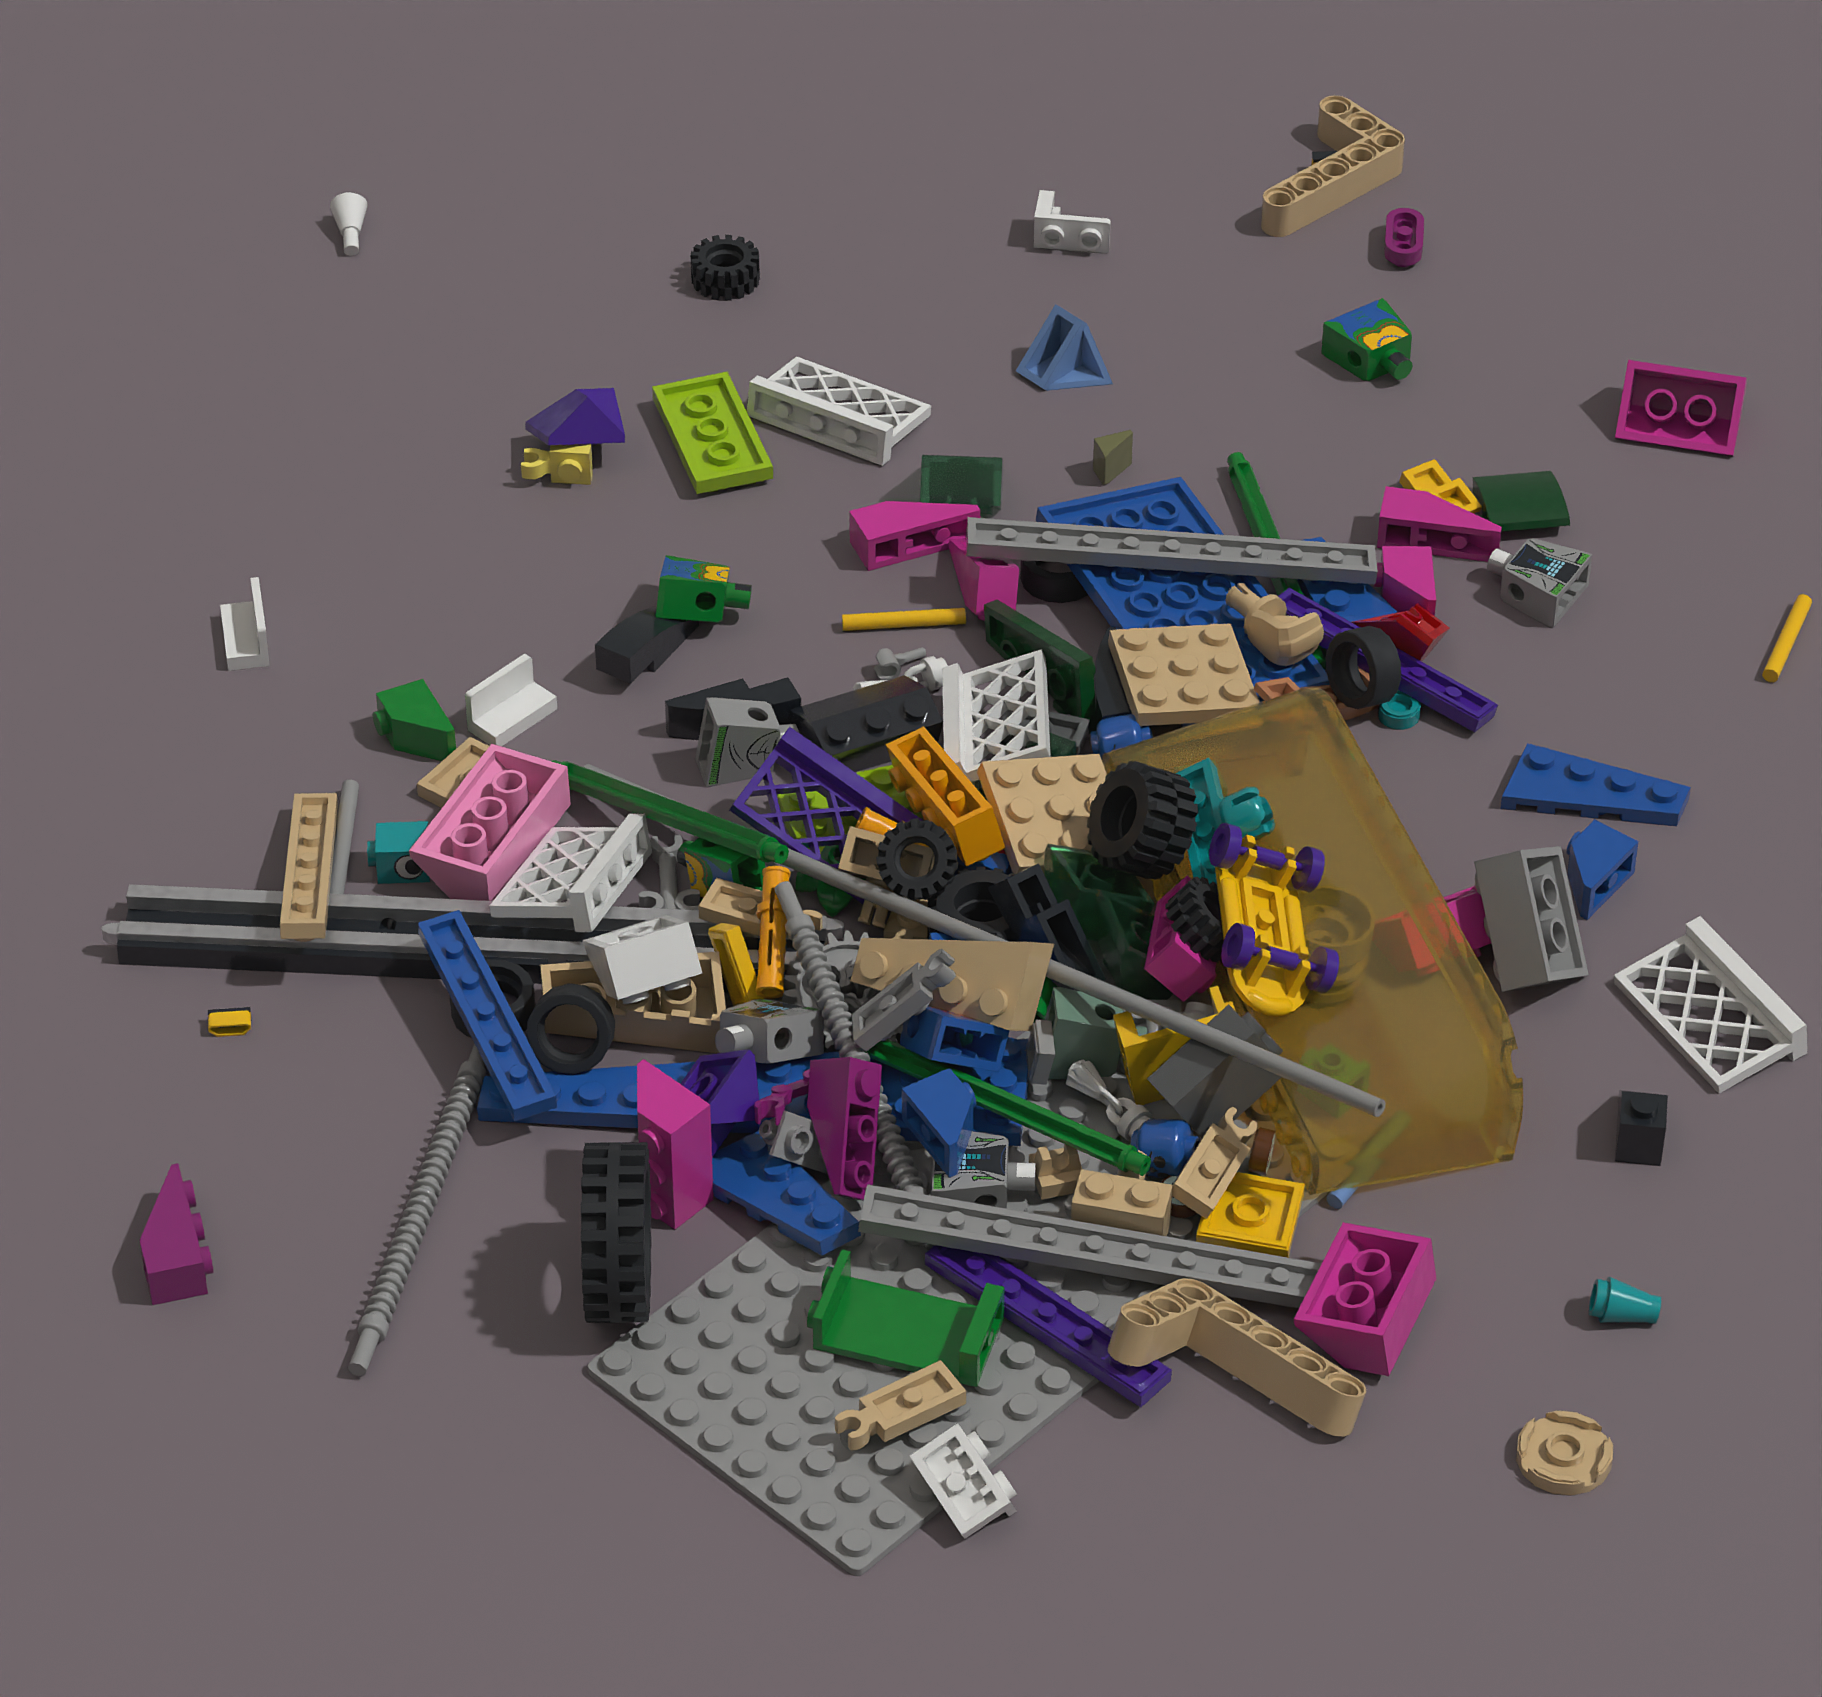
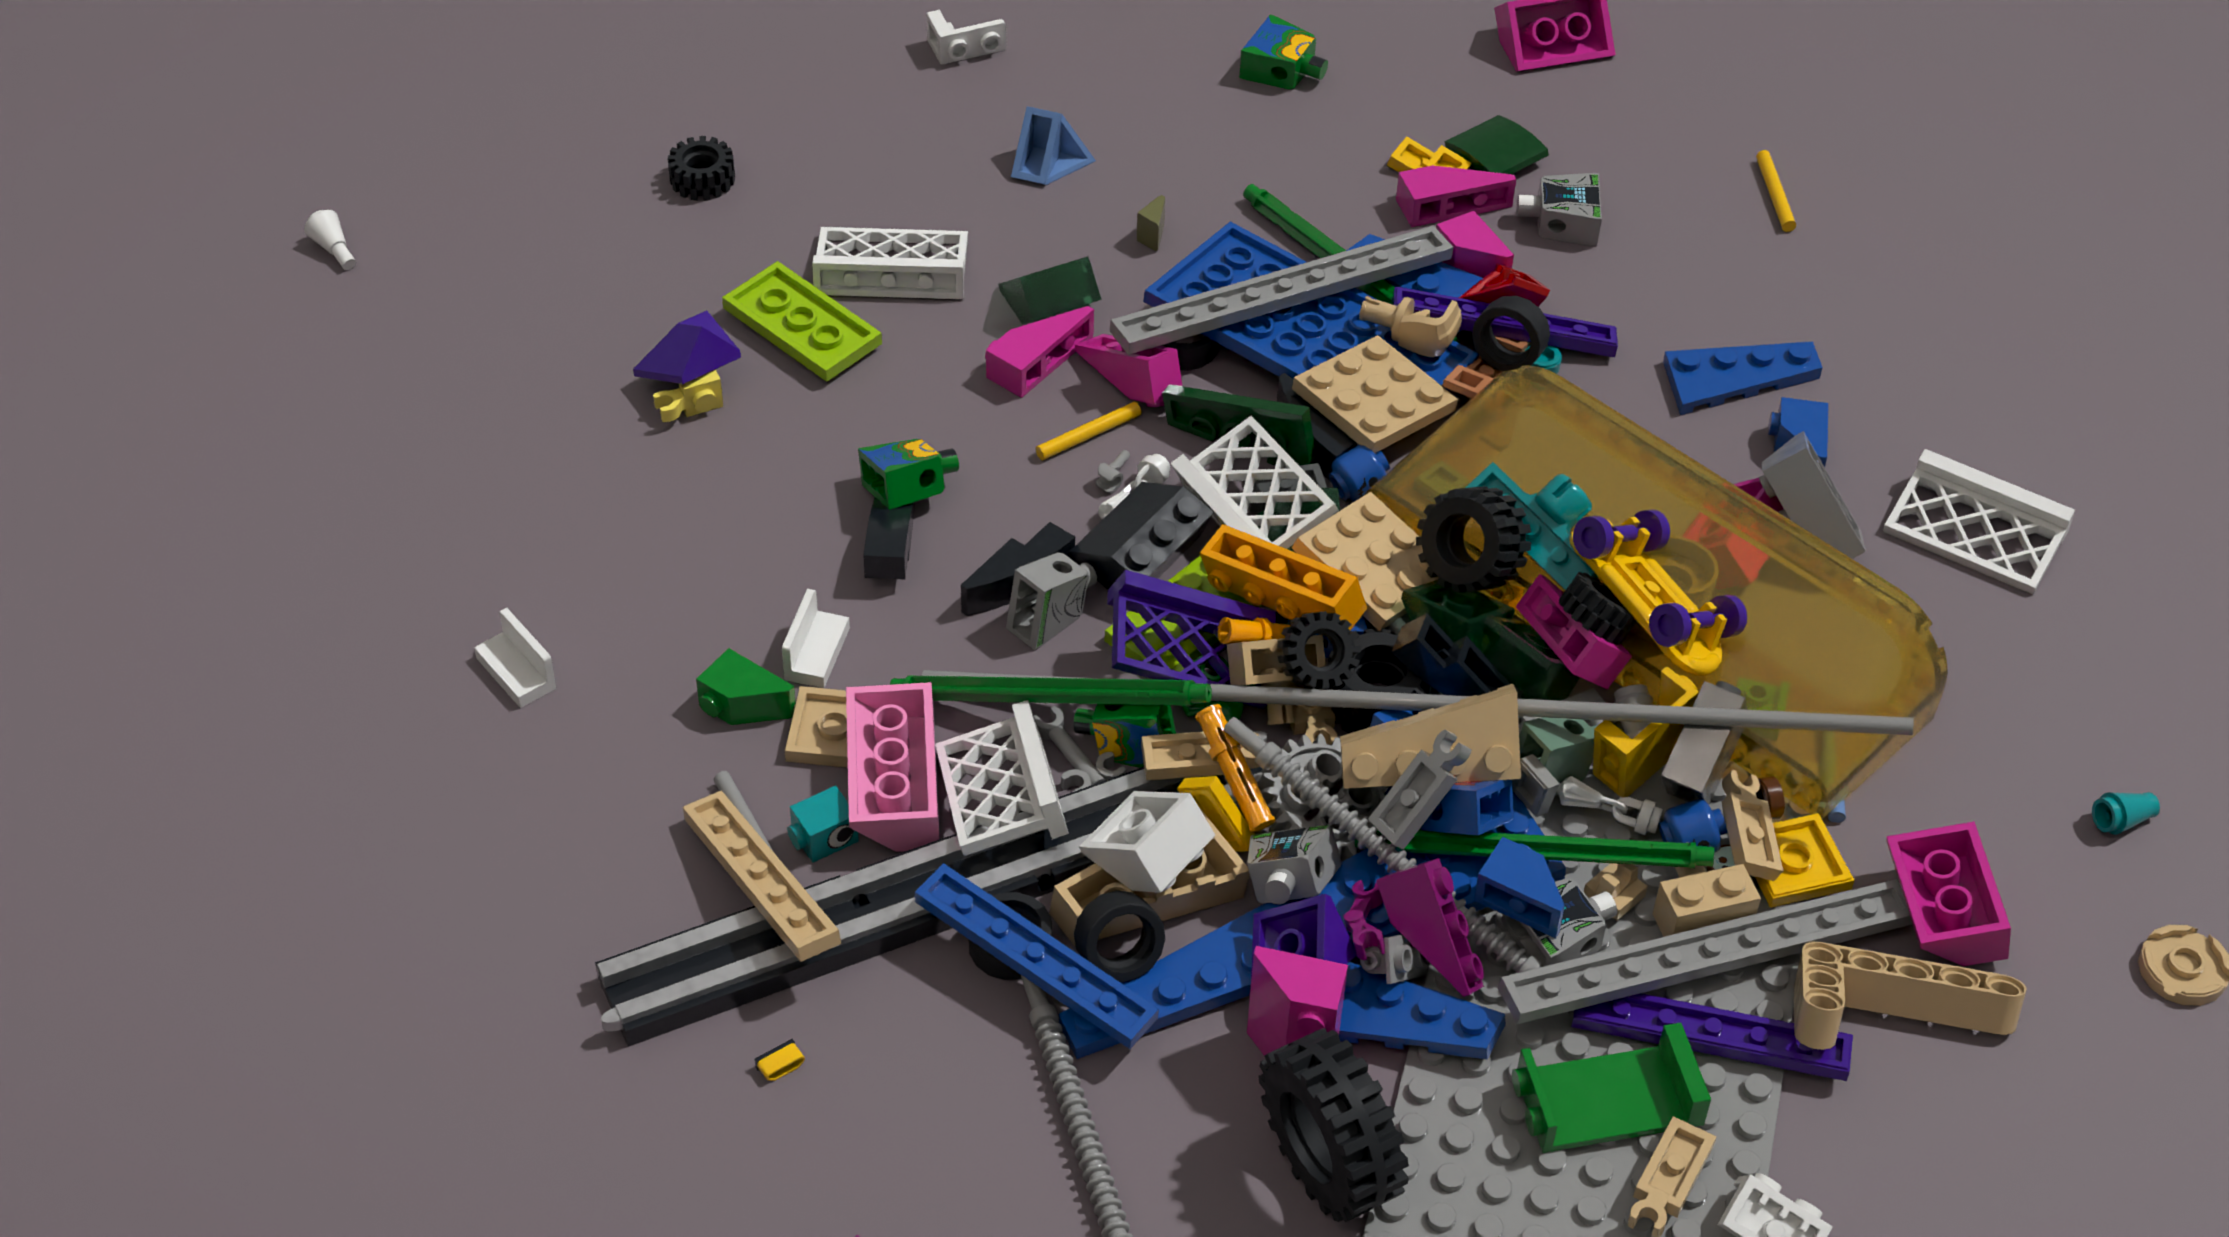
camera: 30 degrees left, 5 degrees up
(1641, 1127) = (2013, 645): black slope -> none

